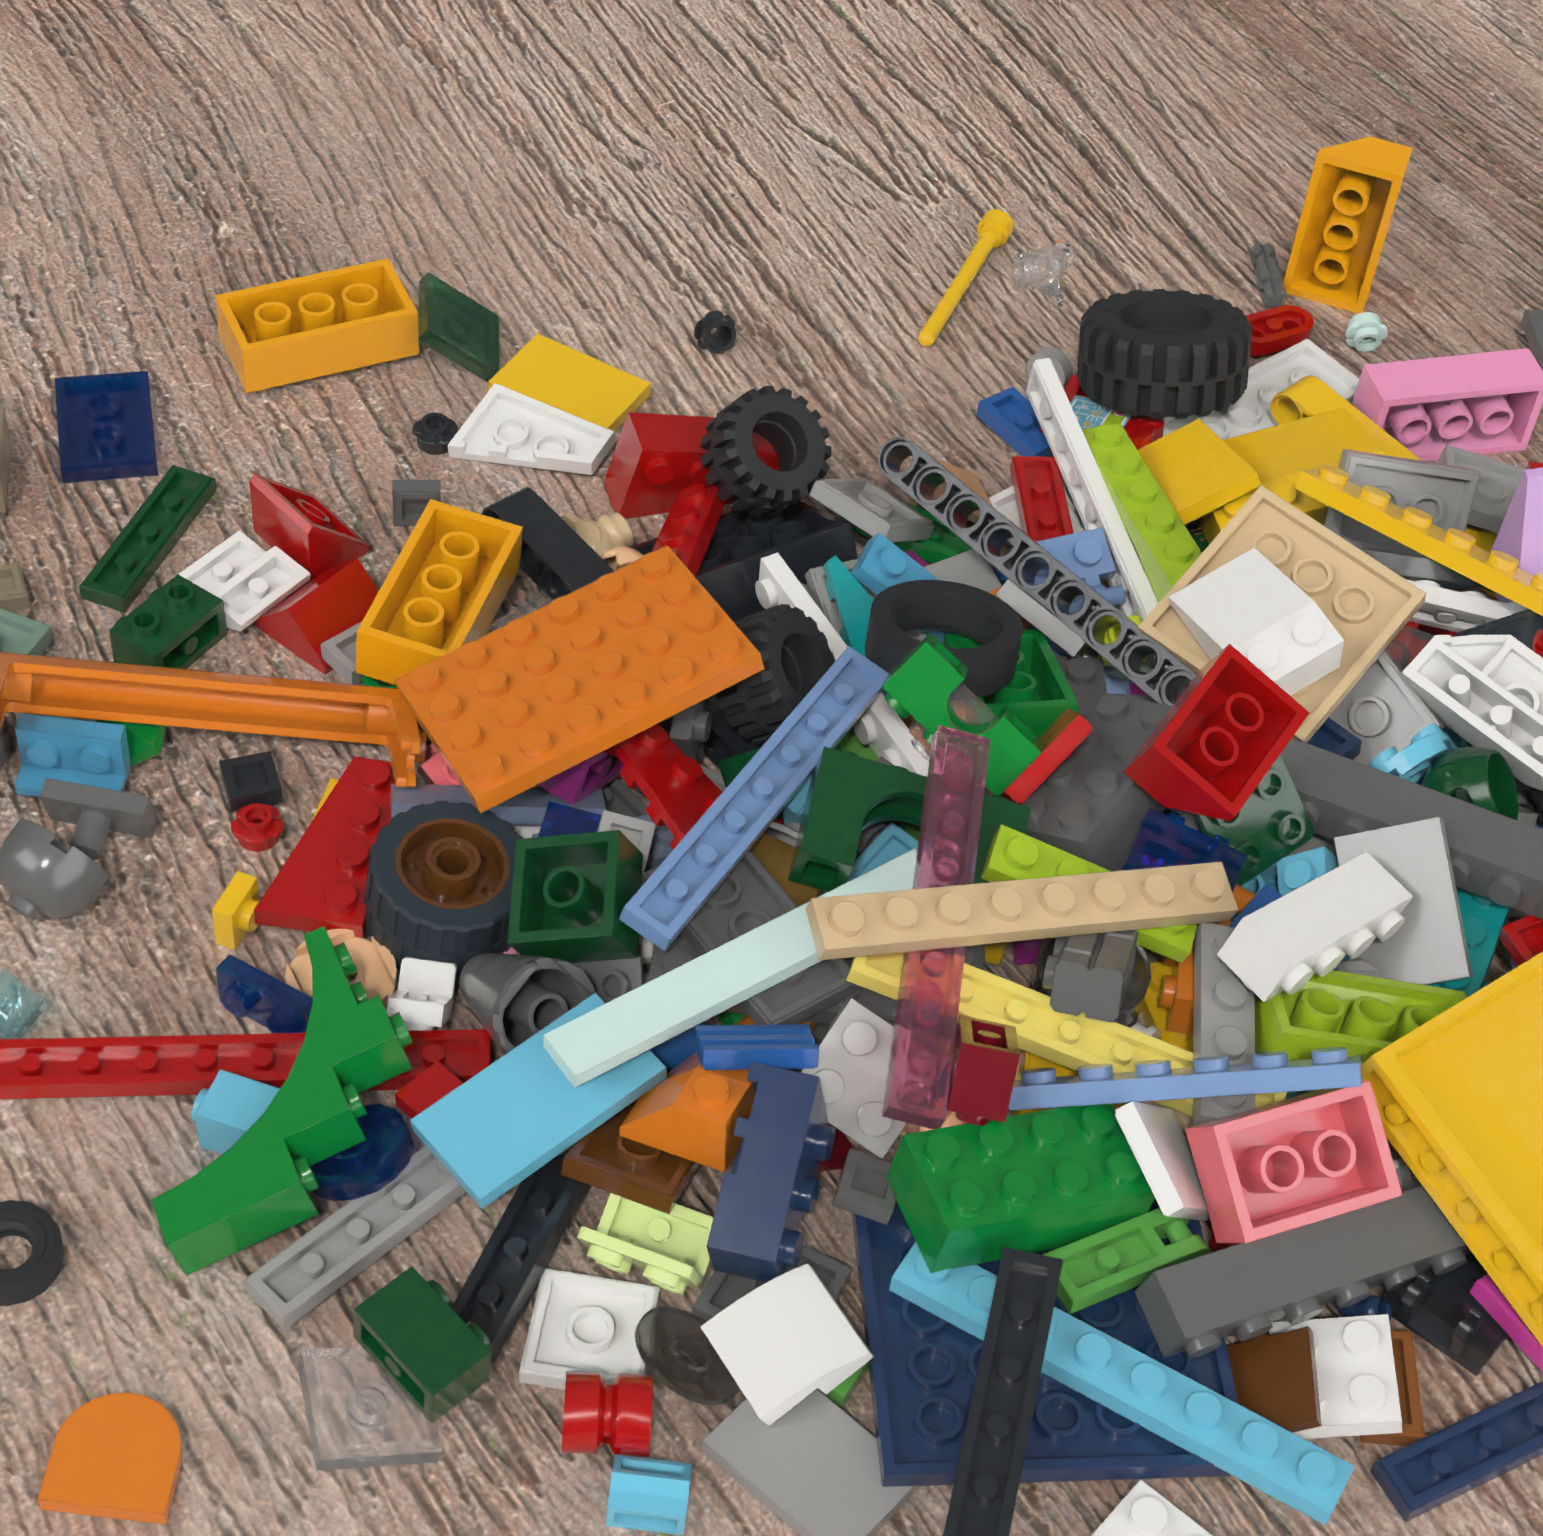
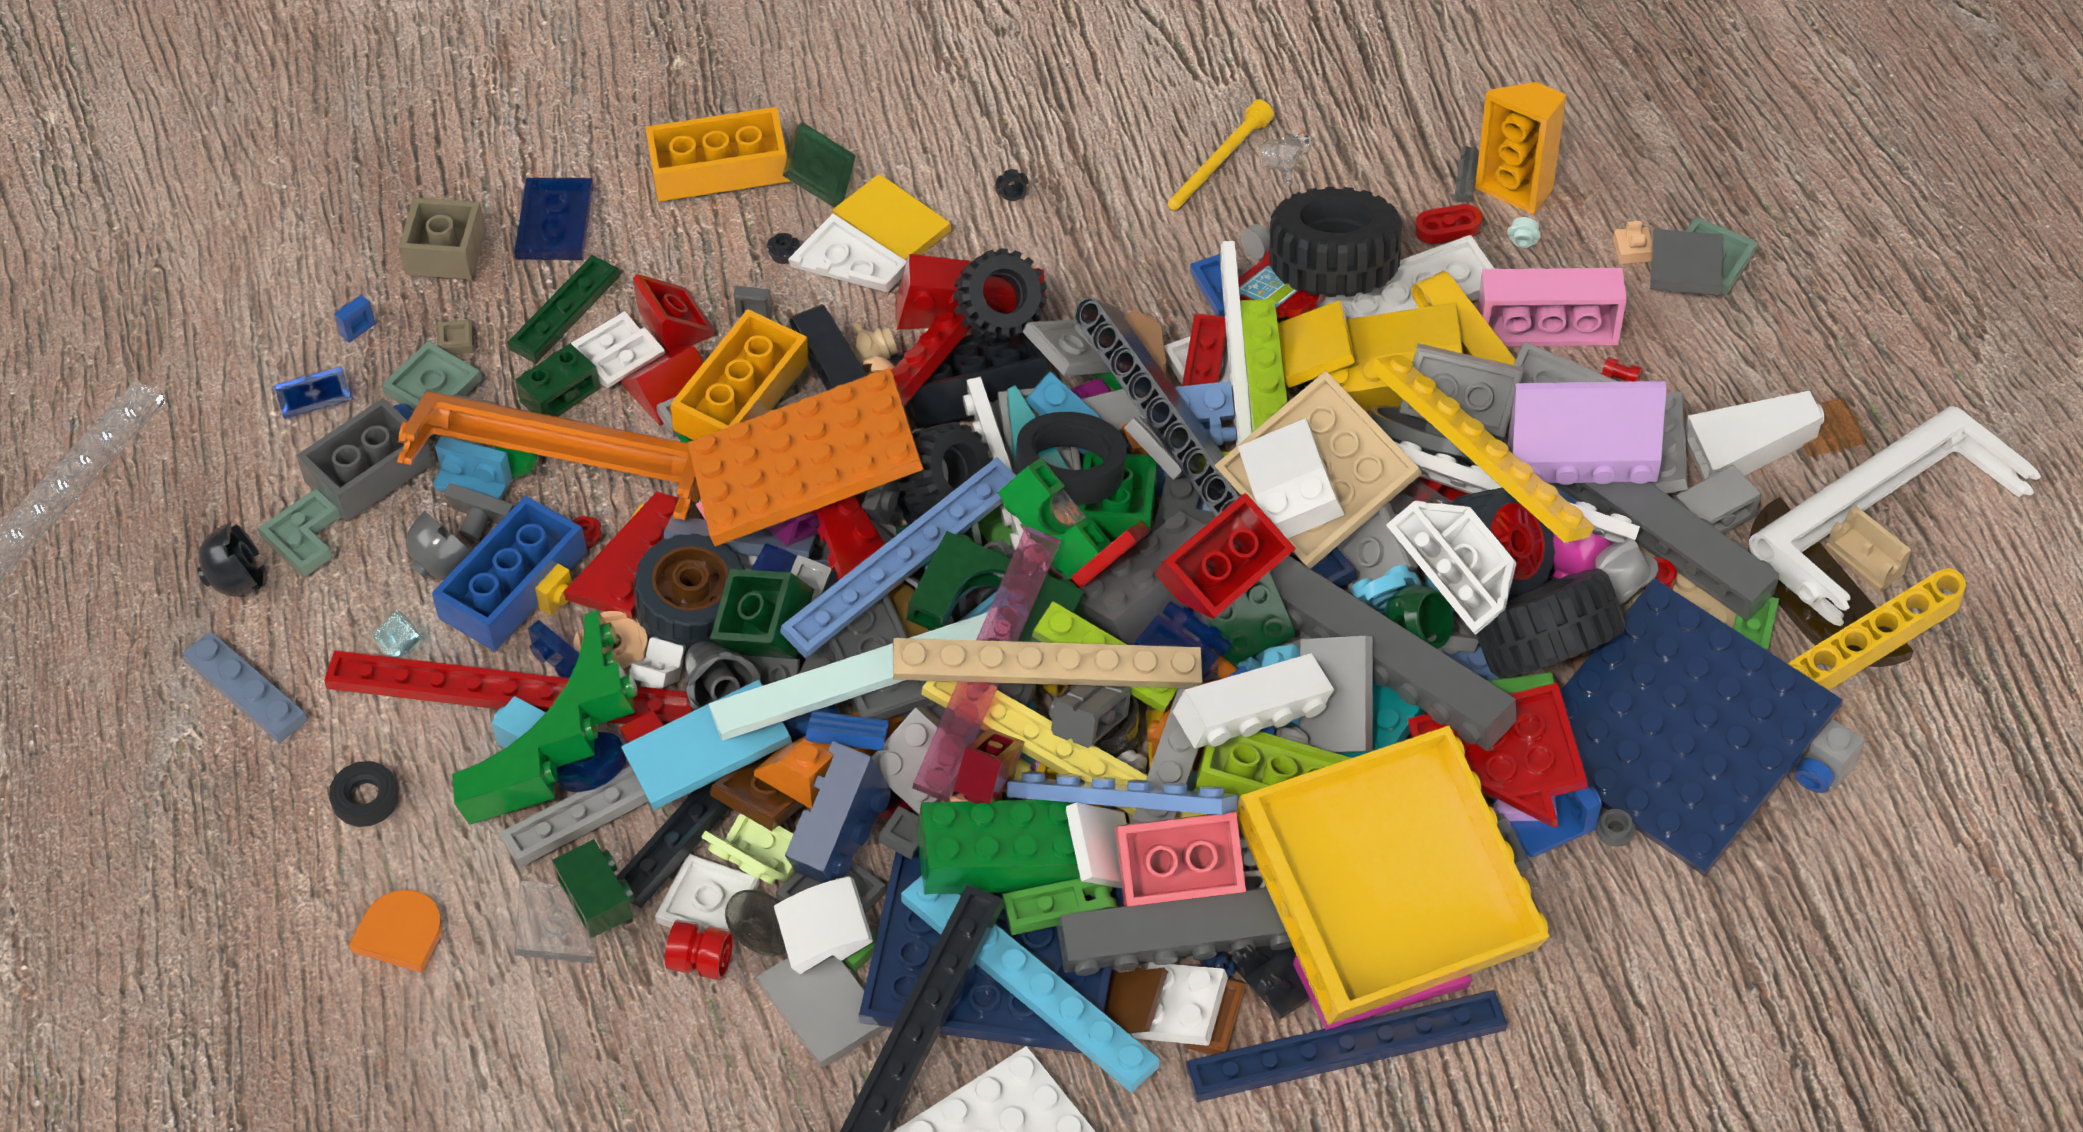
camera: 20 degrees right, 5 degrees up
(156, 898) = (498, 579): none -> blue brick
(250, 780) = (587, 499): black plate -> none
(648, 1494) = (713, 1003): medium azure piece -> none
(1496, 331) = (1633, 243): none -> light nougat tile

